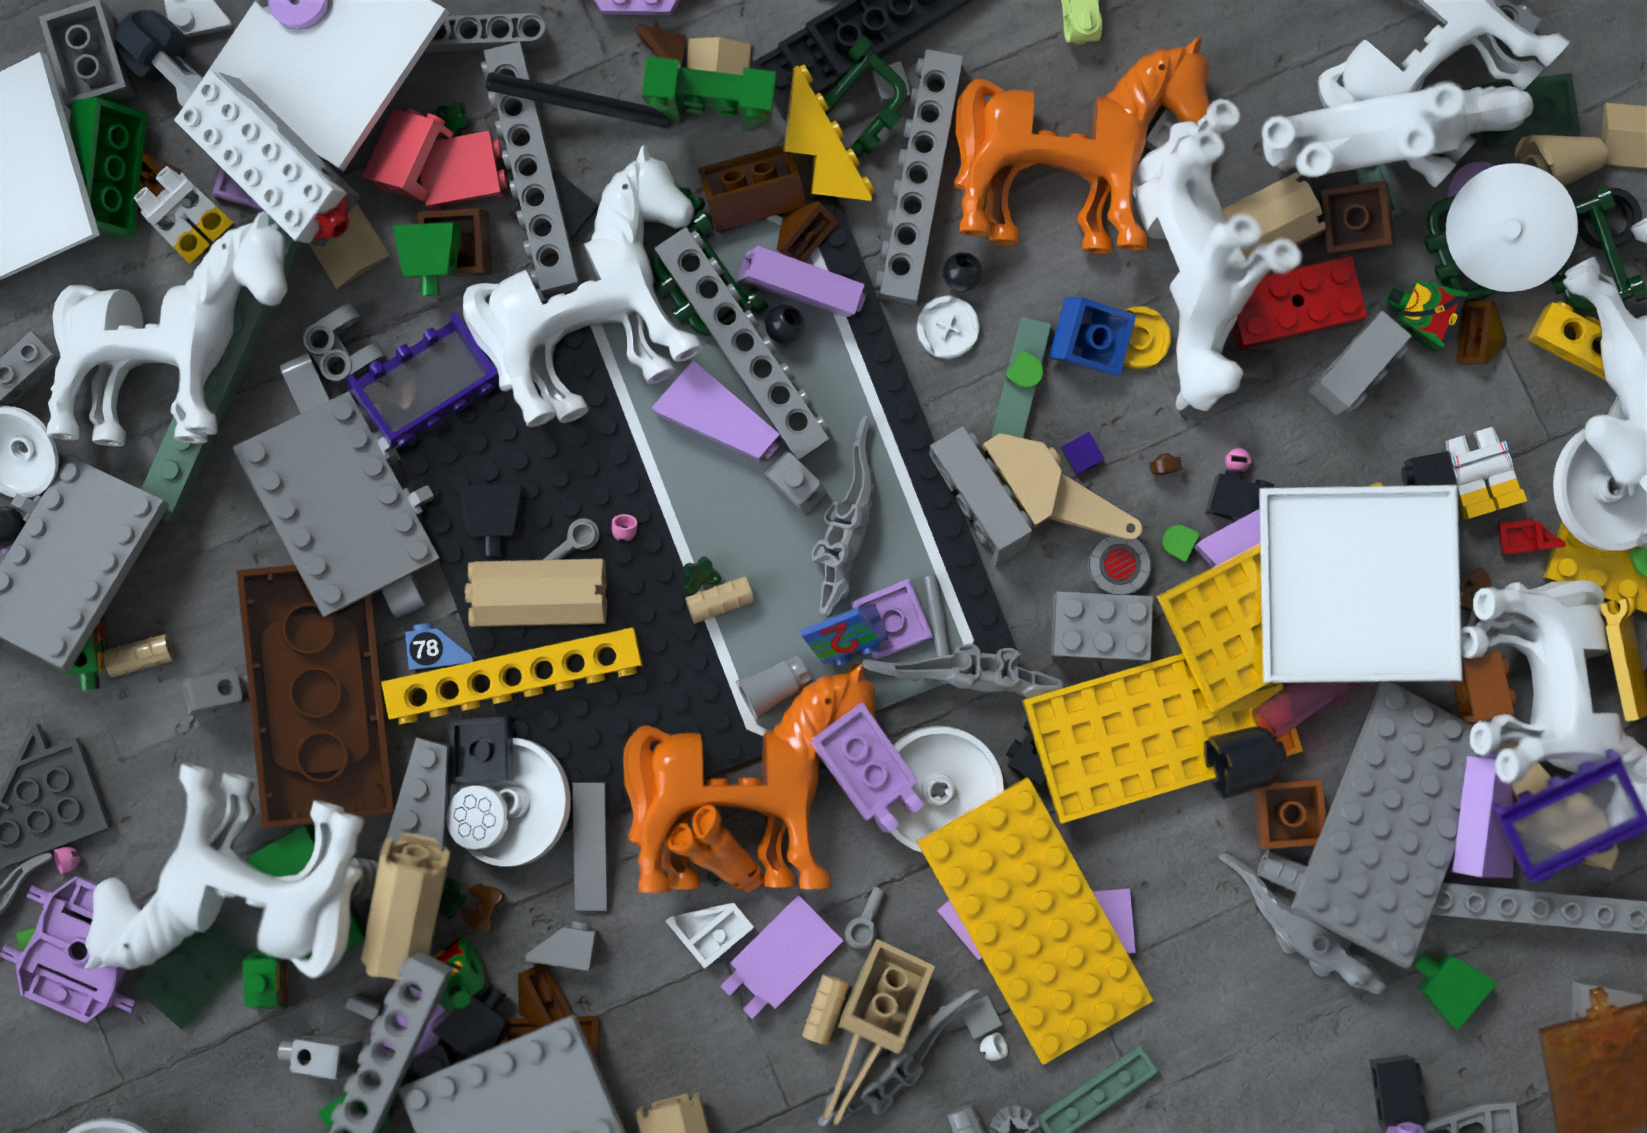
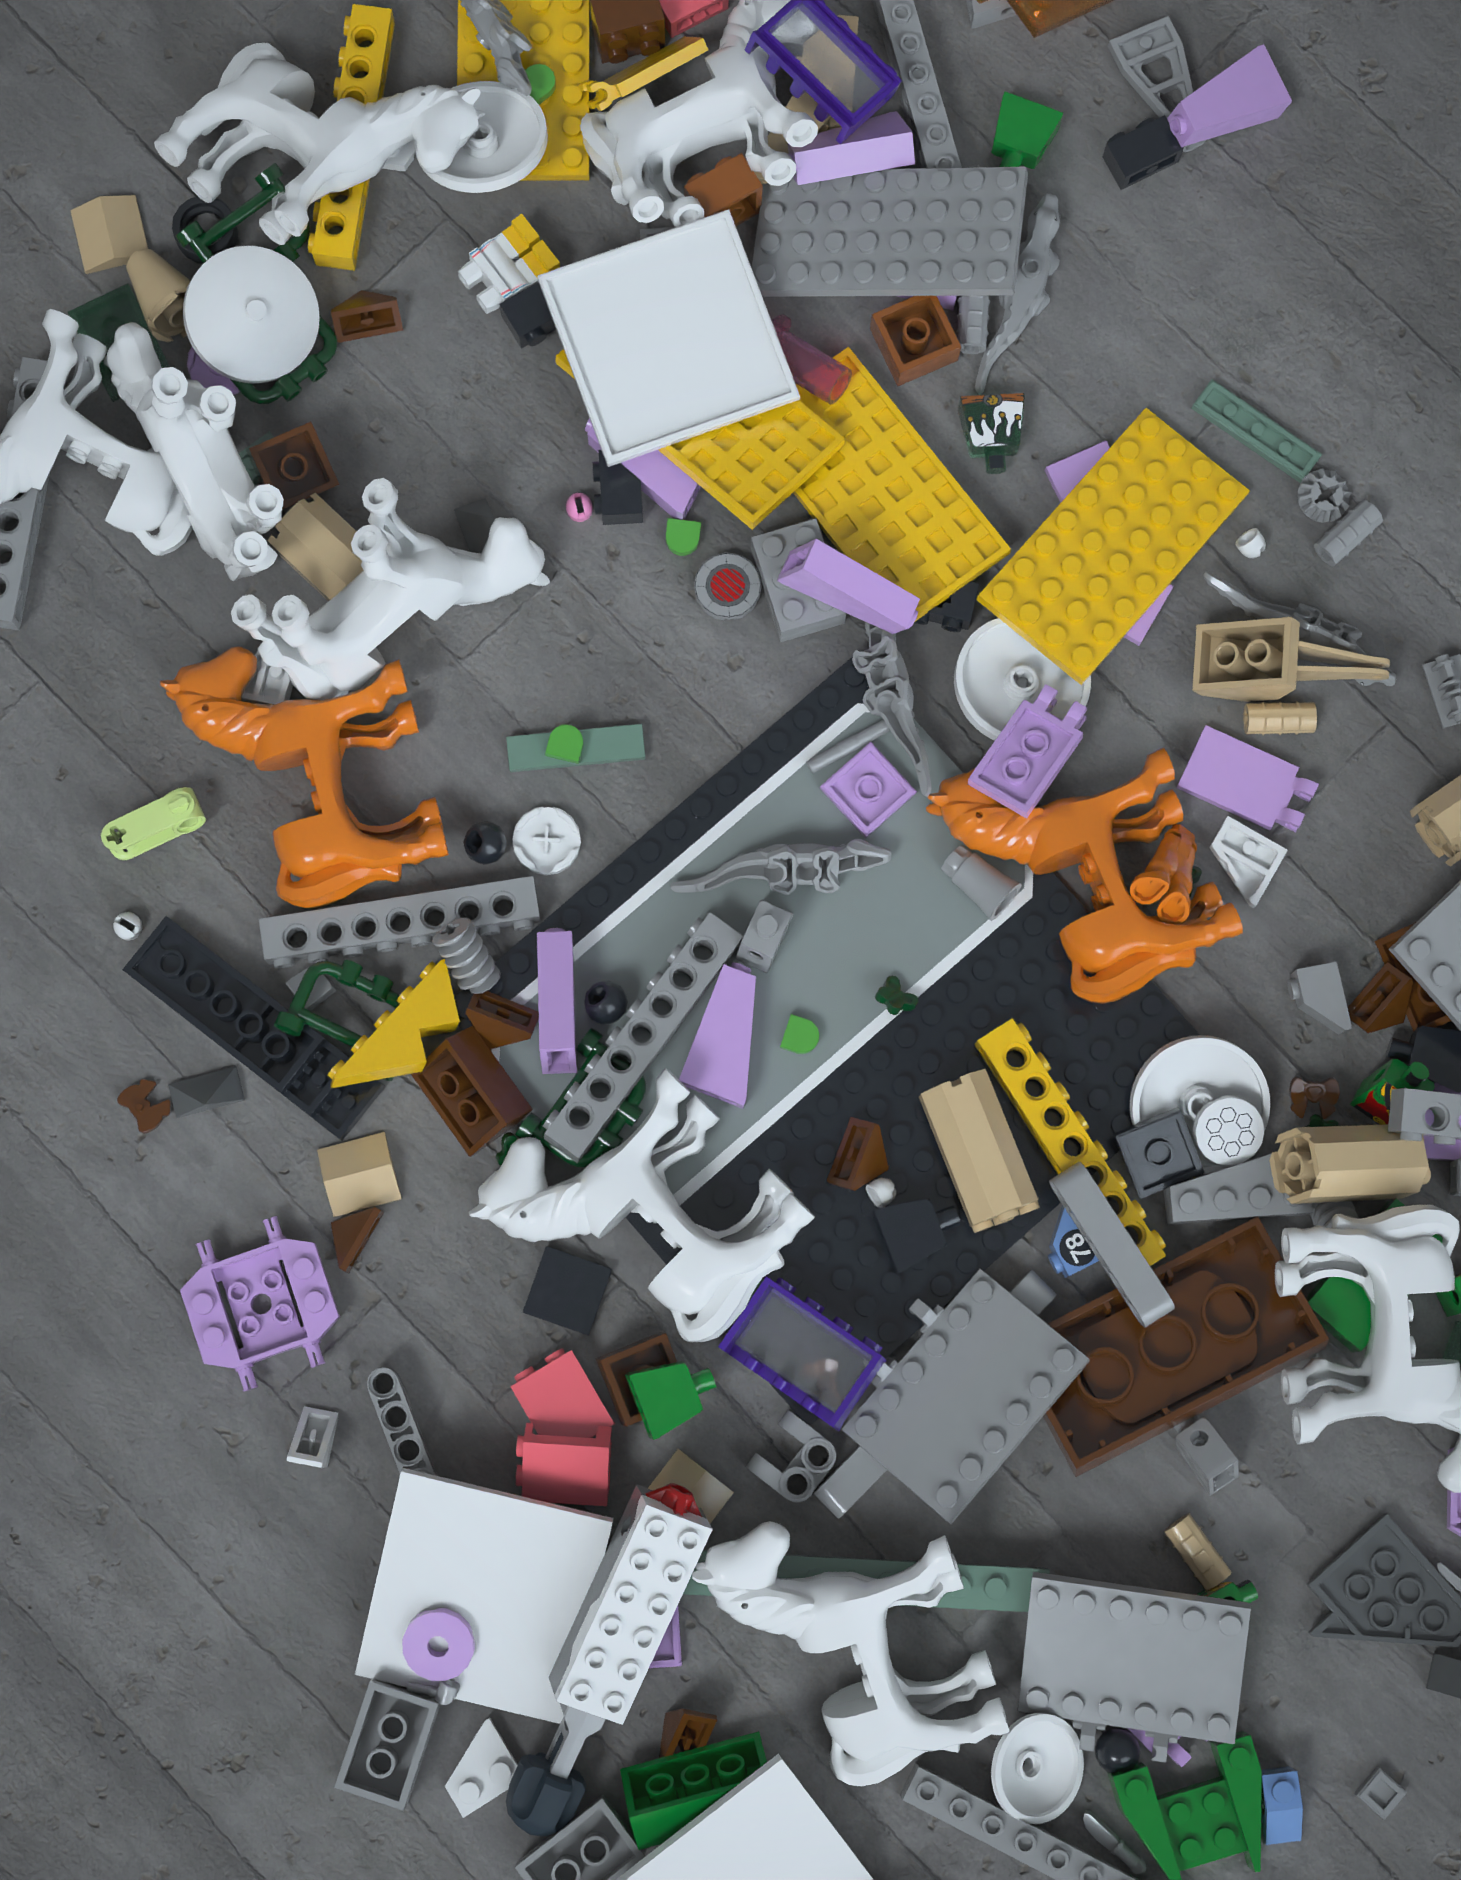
camera: 115 degrees left, 5 degrees down
(64, 859) = (1436, 1548): bright pink hinge -> none
(176, 205) = (713, 1694): white hips -> none
(413, 673) = (1112, 1244): none -> light grey beam
(454, 117) = (506, 1433): dark green piece -> none
(536, 501) = (881, 1192): none -> white hinge
(563, 276) = (424, 1391): light grey brick -> none
(573, 492) = (859, 1156): none -> reddish brown slope
(576, 100) = (444, 1303): black axle -> none
(581, 535) = (900, 1132): light grey plate -> none
(590, 846) = (1210, 1009): light grey slope -> none
(621, 521) = (868, 1093): bright pink hinge -> none
(671, 88) = (384, 1116): green wedge -> none
(697, 481) = (800, 1035): none -> bright green tile
(719, 599) = (913, 967): tan axle -> none
(846, 634) = (902, 824): blue slope -> none
(861, 931) = (1189, 710): light grey plate -> none
(865, 219) = (467, 956): none -> light grey piece
(980, 1017) = (1227, 565): light grey tile -> none
(982, 494) = (709, 741): light grey wedge -> none
(1046, 493) = (685, 681): tan slope -> none
(1071, 661) = (848, 586): none -> lavender slope
(1082, 453) = (627, 661): dark purple tile -> none
(1092, 336) = (506, 690): blue slope -> none
(1148, 339) = (488, 646): yellow tile -> none
(1165, 464) = (610, 574): reddish brown tile -> none
(1182, 853) = (992, 427): none -> torso
(1244, 760) = (883, 392): black cylinder -> none
(1327, 300) = (389, 458): red brick -> none
(1361, 364) = (441, 416): light grey brick -> none
(1427, 311) = (363, 372): torso -> none
(1471, 584) = (618, 233): reddish brown piece -> none
(1526, 537) = (555, 206): red slope -> none

